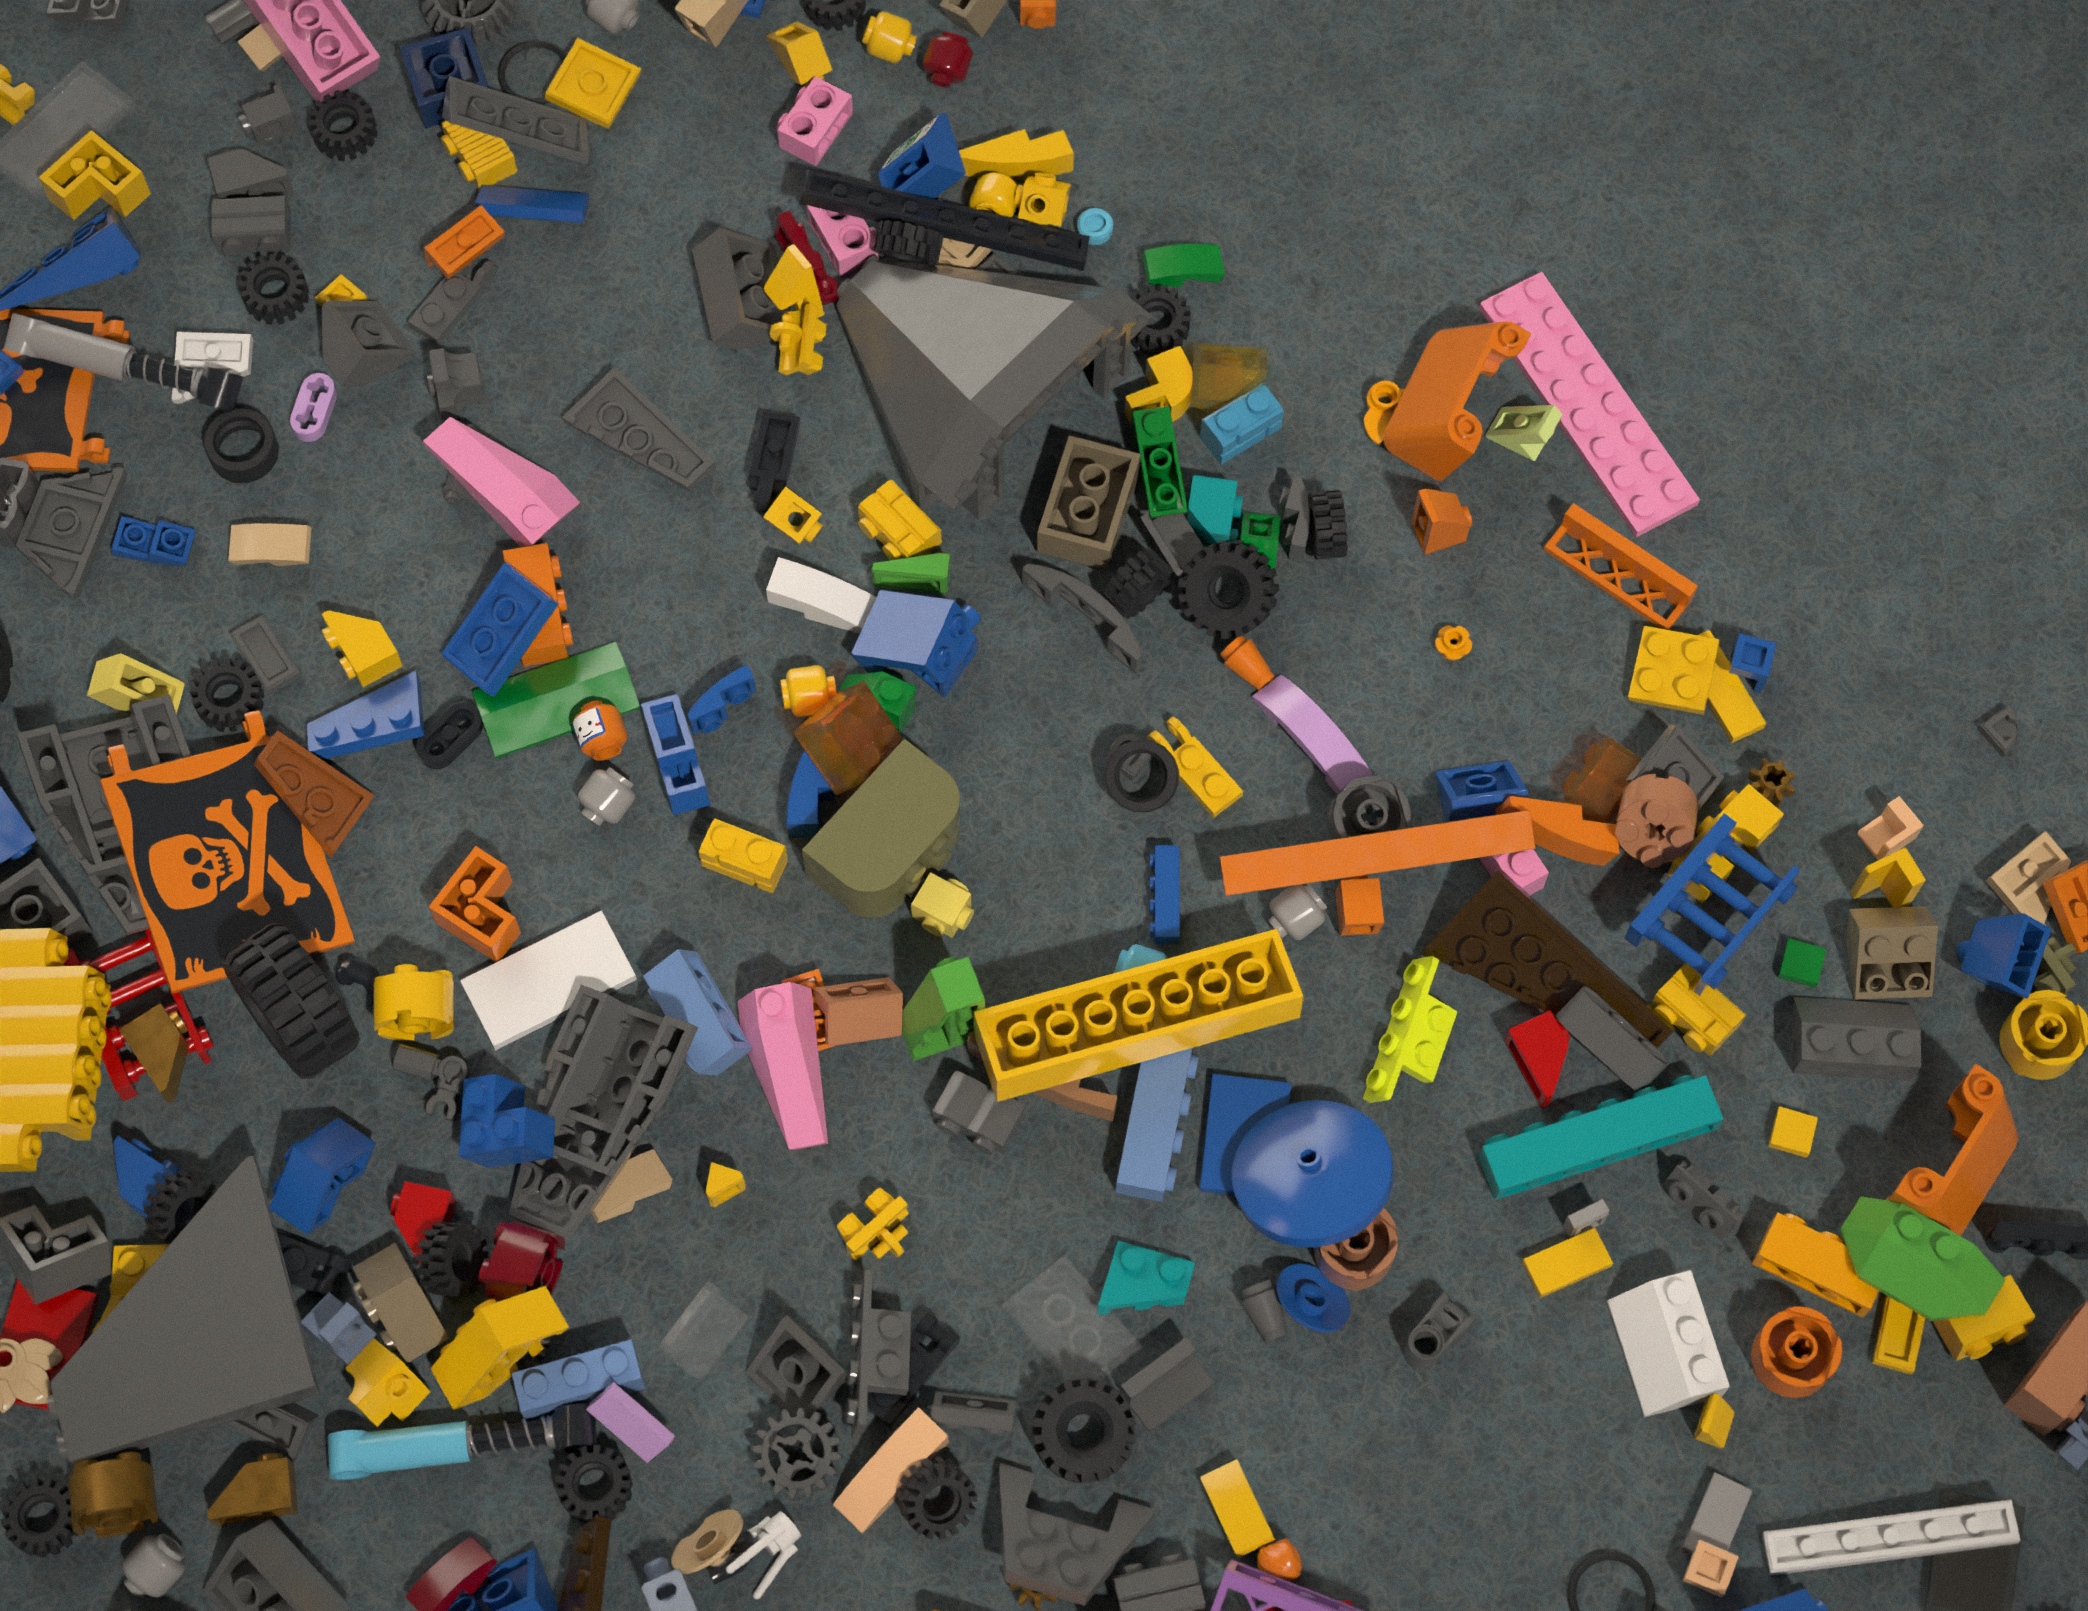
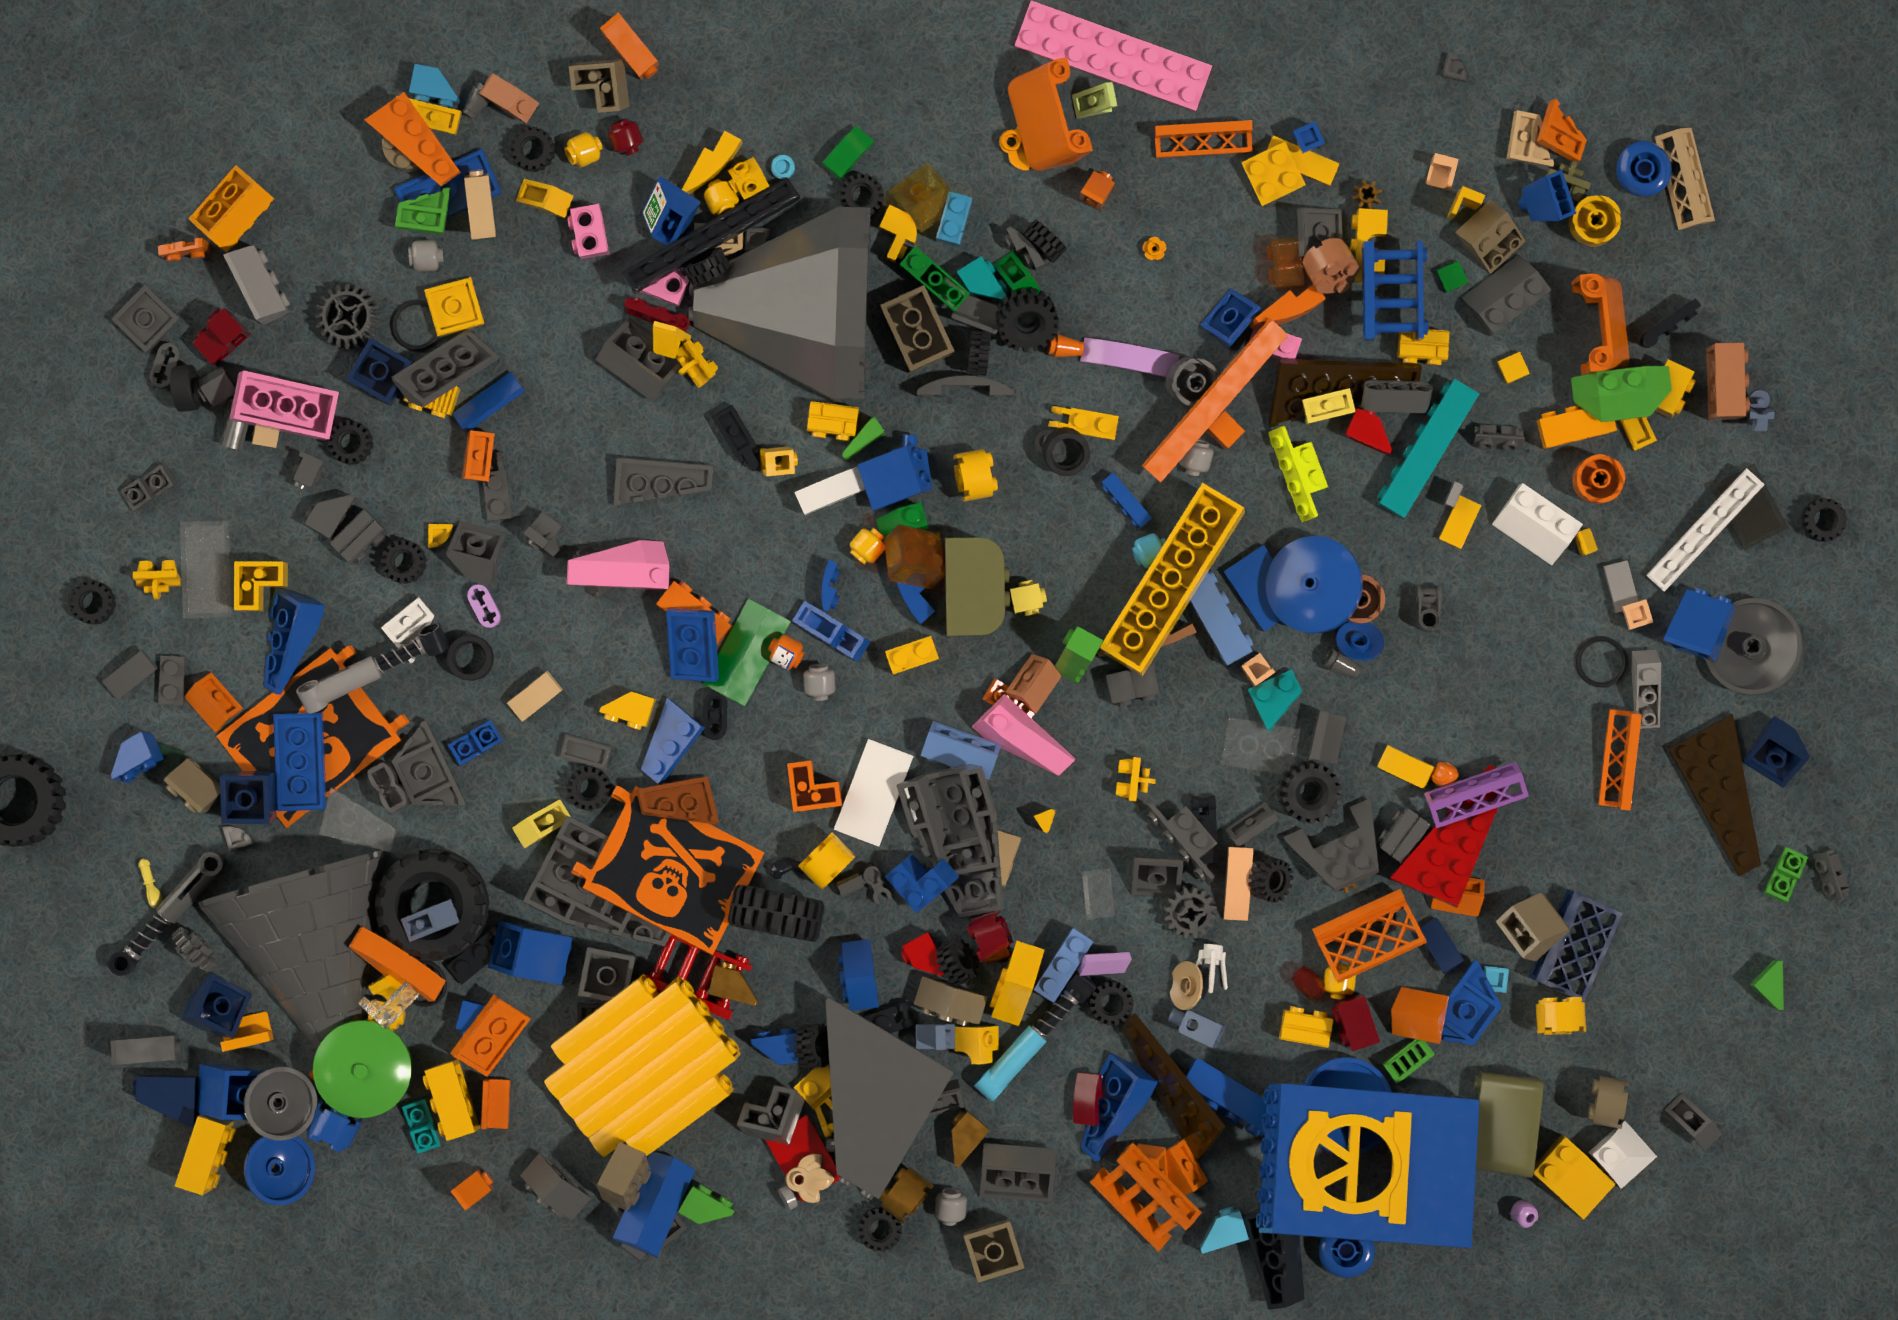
camera: 35 degrees left, 20 degrees up
(1007, 710) = (974, 475): none -> yellow brick
(1150, 1226) = (1257, 669): none -> light nougat panel
(1513, 982) = (1328, 406): none -> light yellow panel

